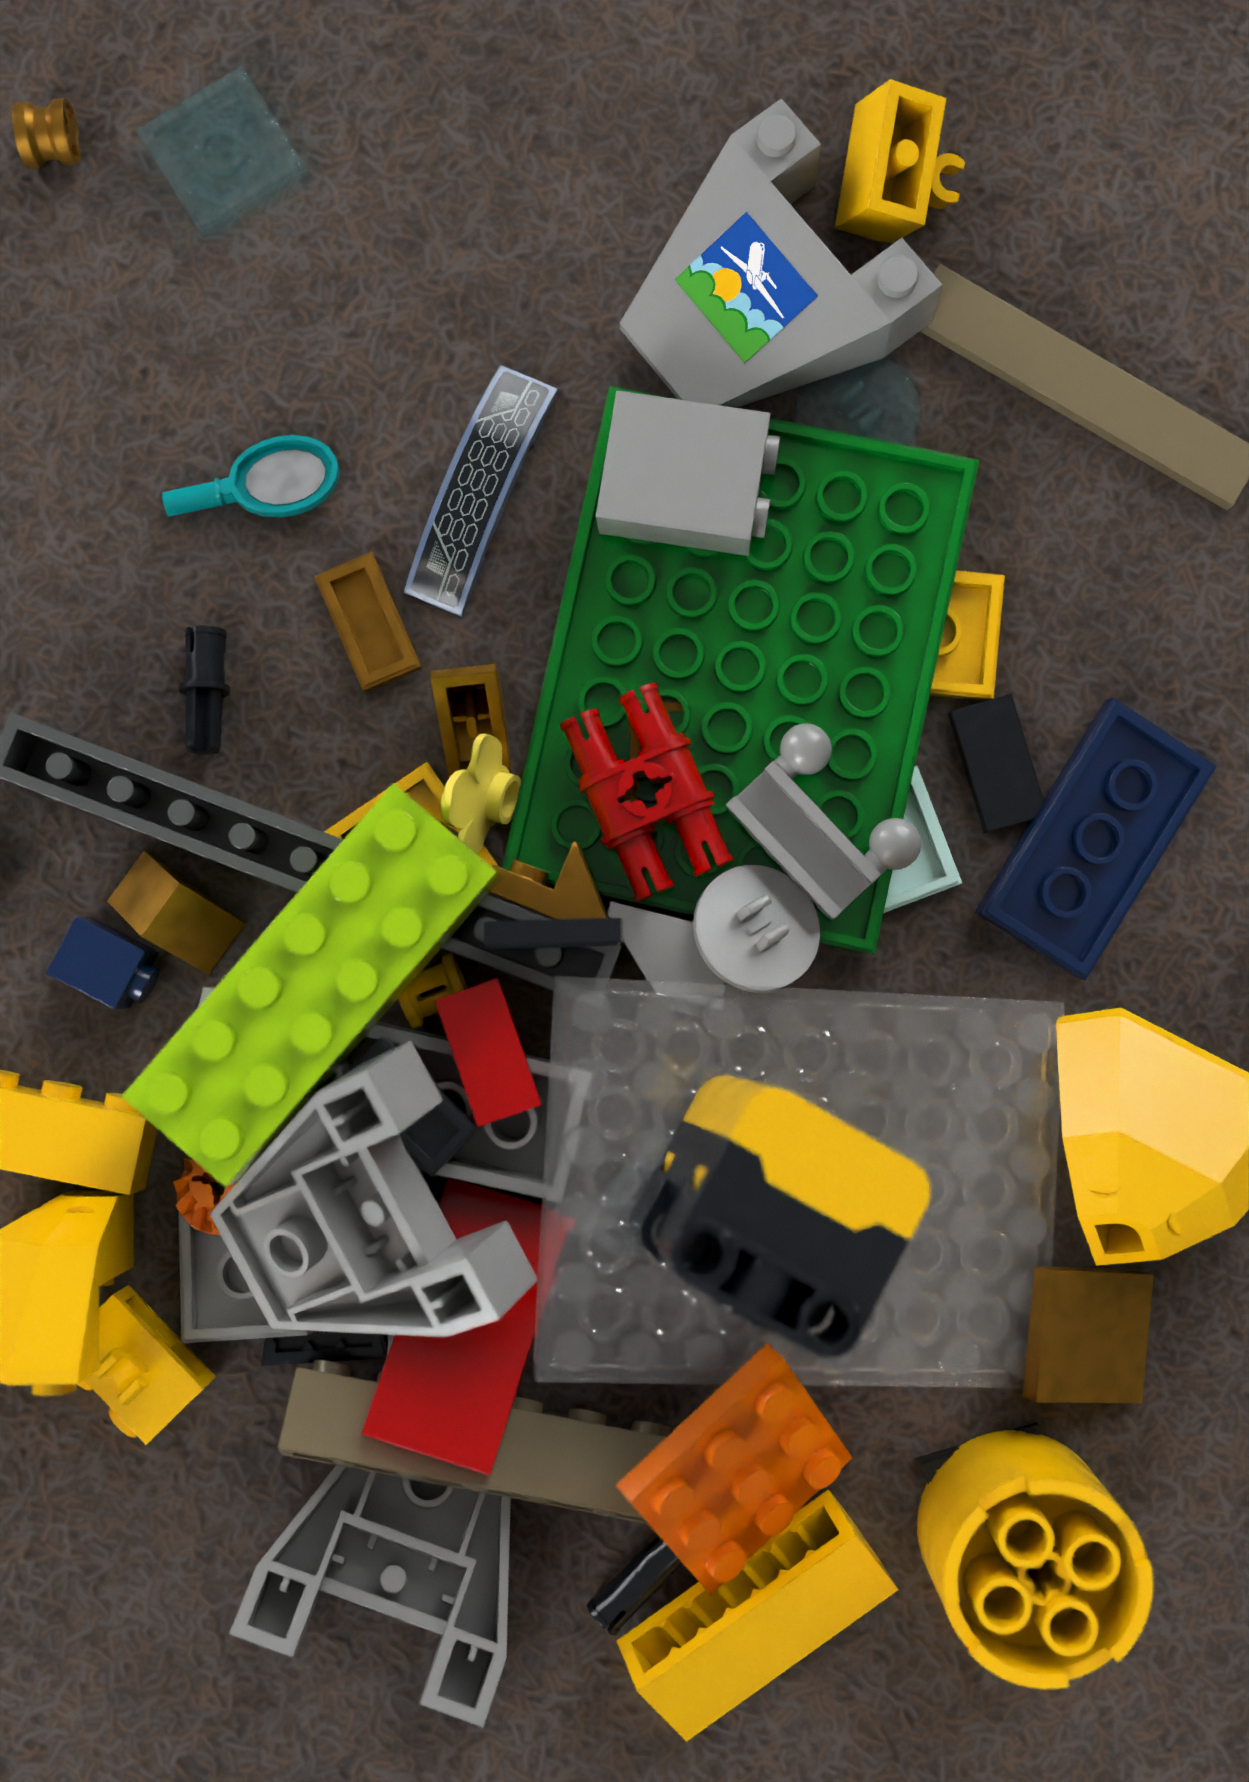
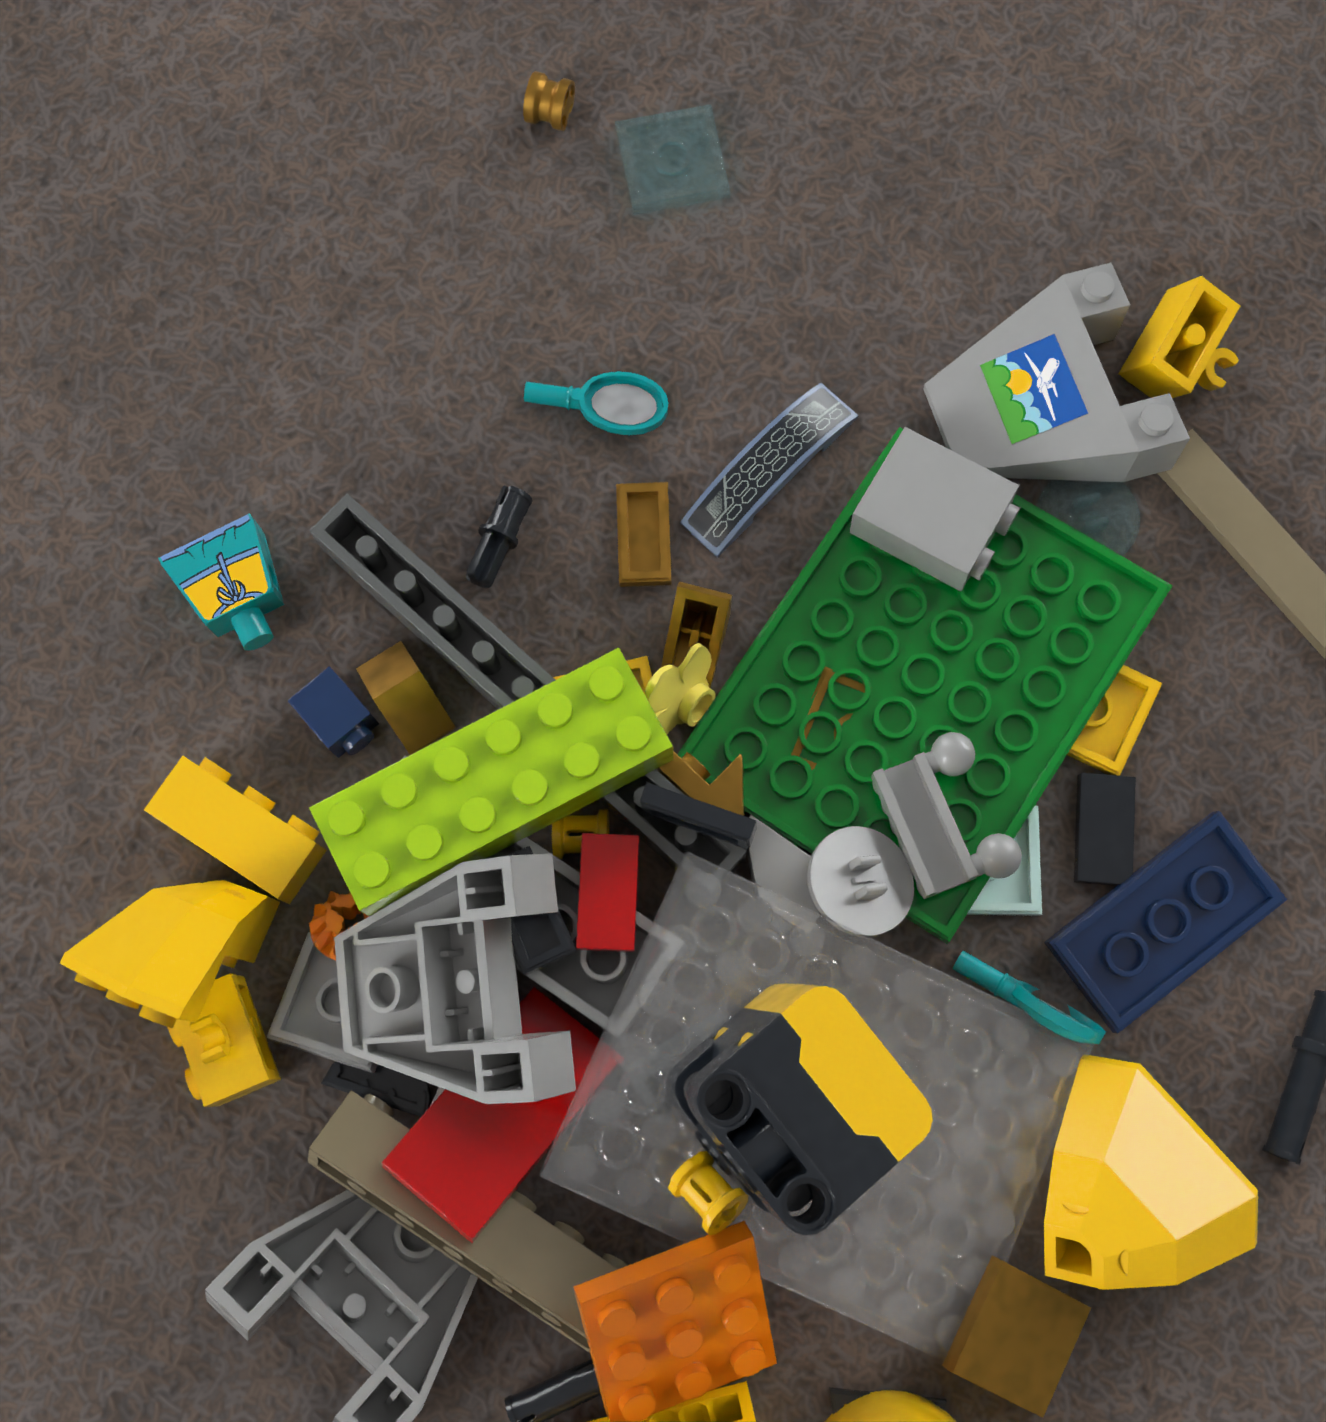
camera: 25 degrees right, 10 degrees down
(611, 782) = (787, 753): red pin -> none
(717, 1333) = (708, 1192): none -> yellow bush
(1039, 992) = (1075, 1027): none -> teal piece

